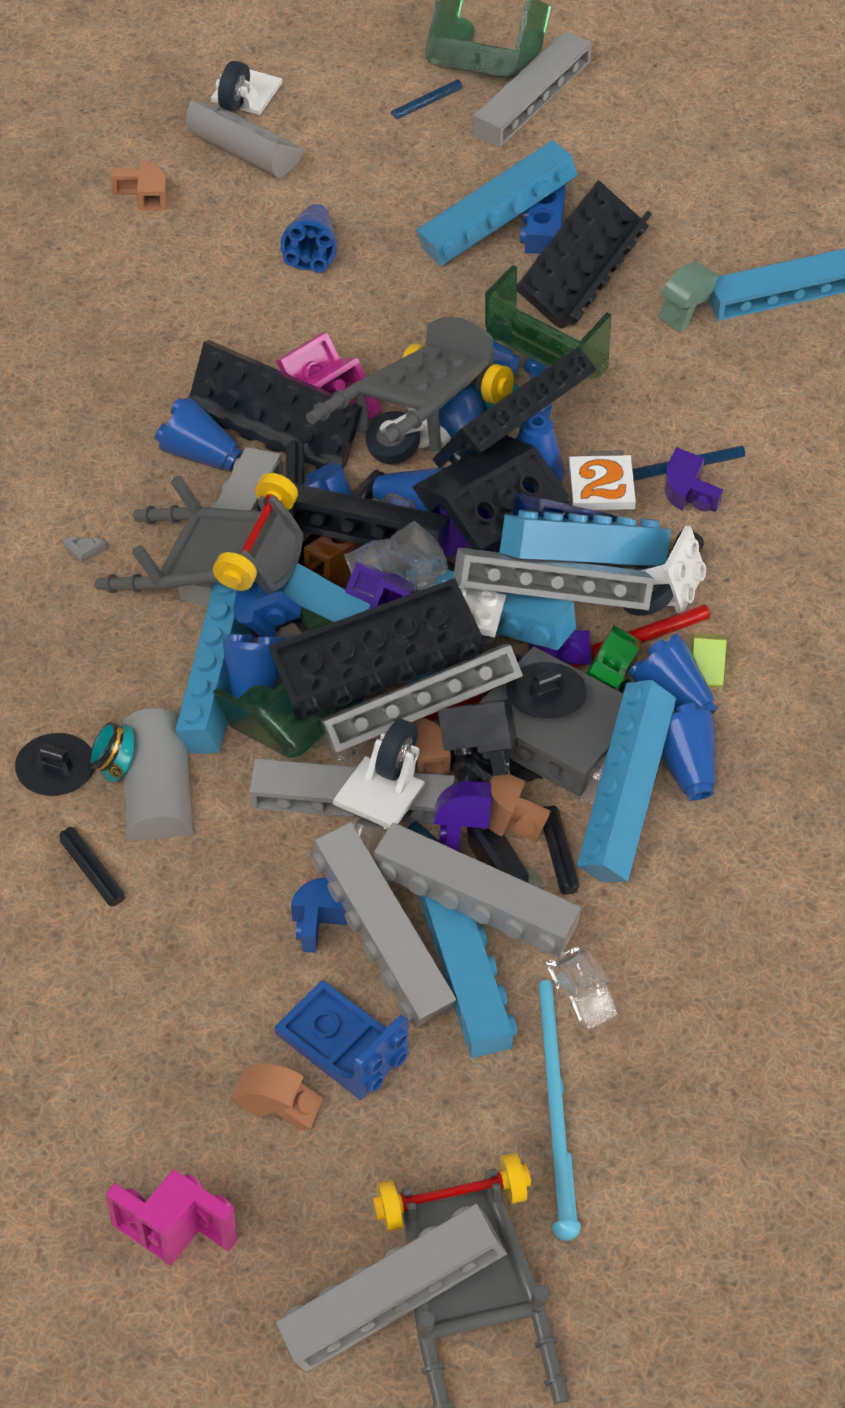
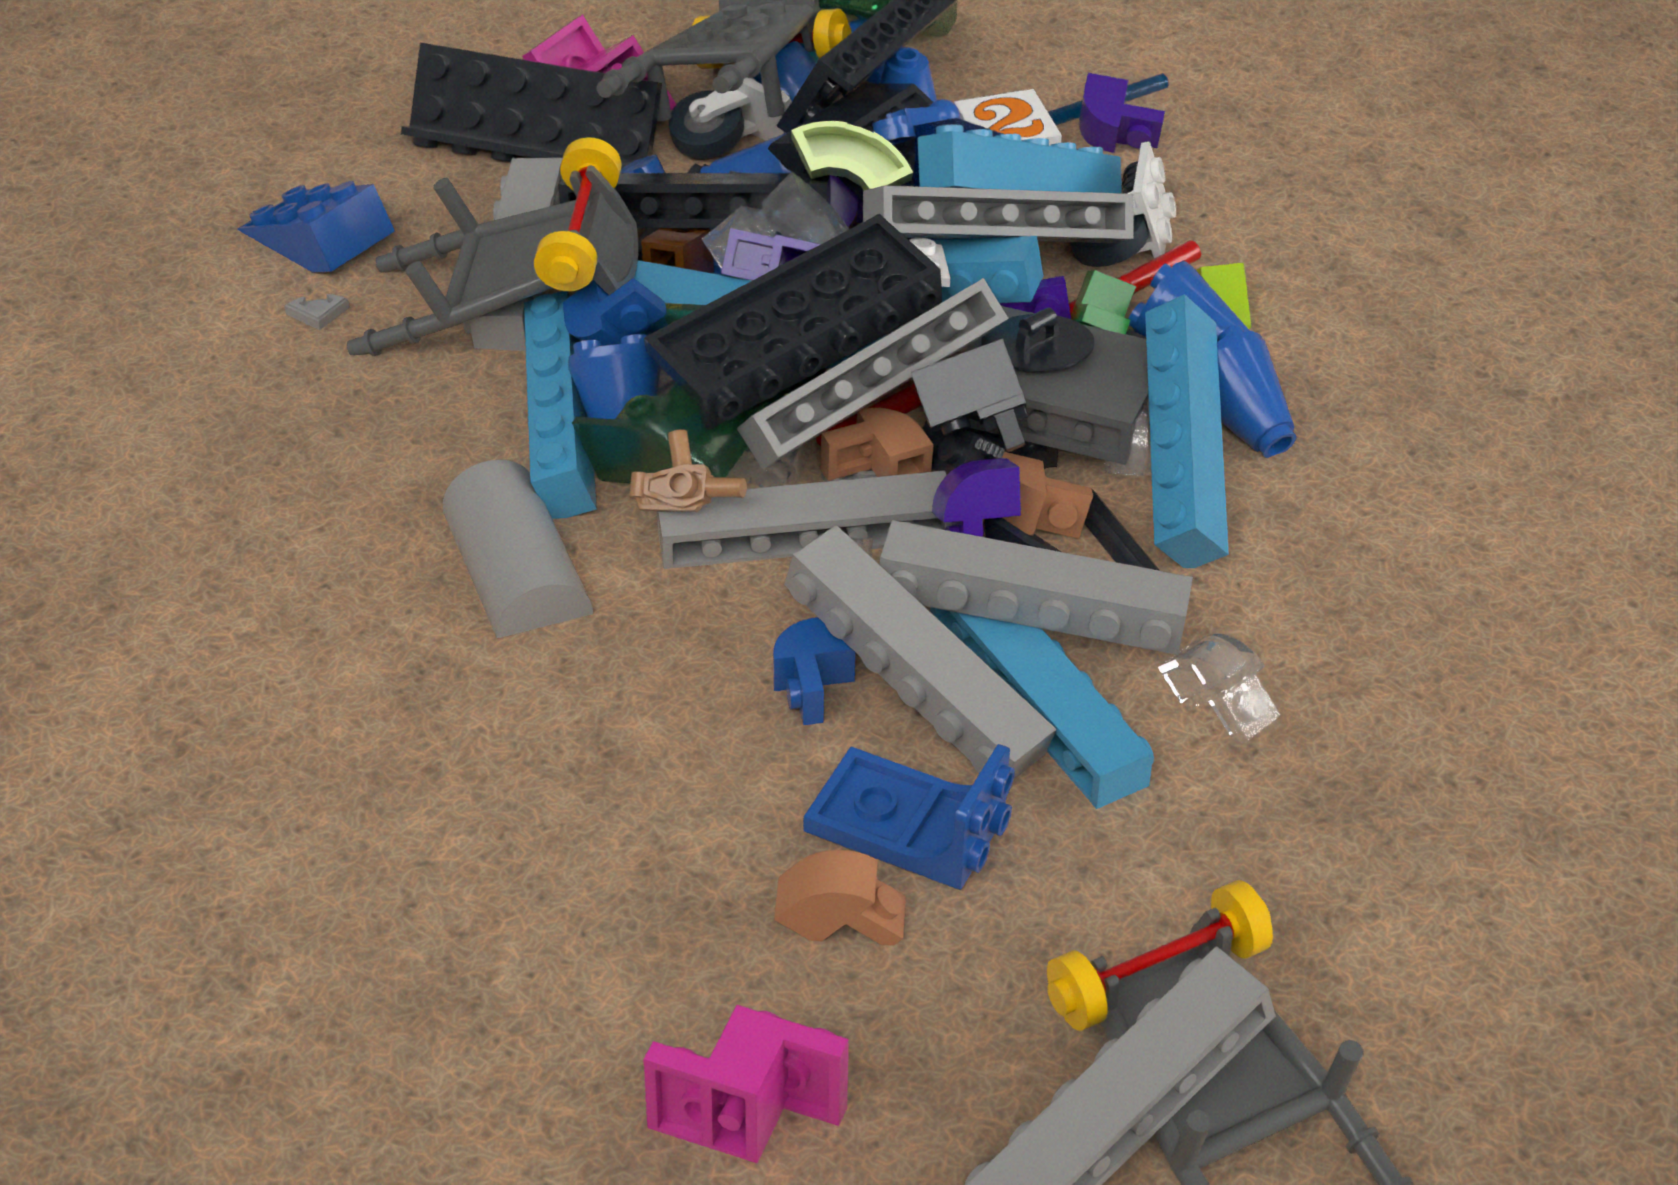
camera: 15 degrees left, 10 degrees down
(53, 764) = (359, 564): black shield -> none
(92, 866) = (457, 675): black axle -> none
(103, 476) = (321, 224): none -> blue slope
(112, 751) = (445, 526): piece -> none
(197, 436) = (436, 151): blue cone -> none
(270, 758) = (685, 485): none -> medium nougat piece
(385, 784) = (846, 489): white plate -> none
(459, 514) = (850, 153): none -> yellowish green brick
(544, 480) = (900, 125): none -> blue piece
(567, 1226) = (1324, 986): medium azure bar -> none

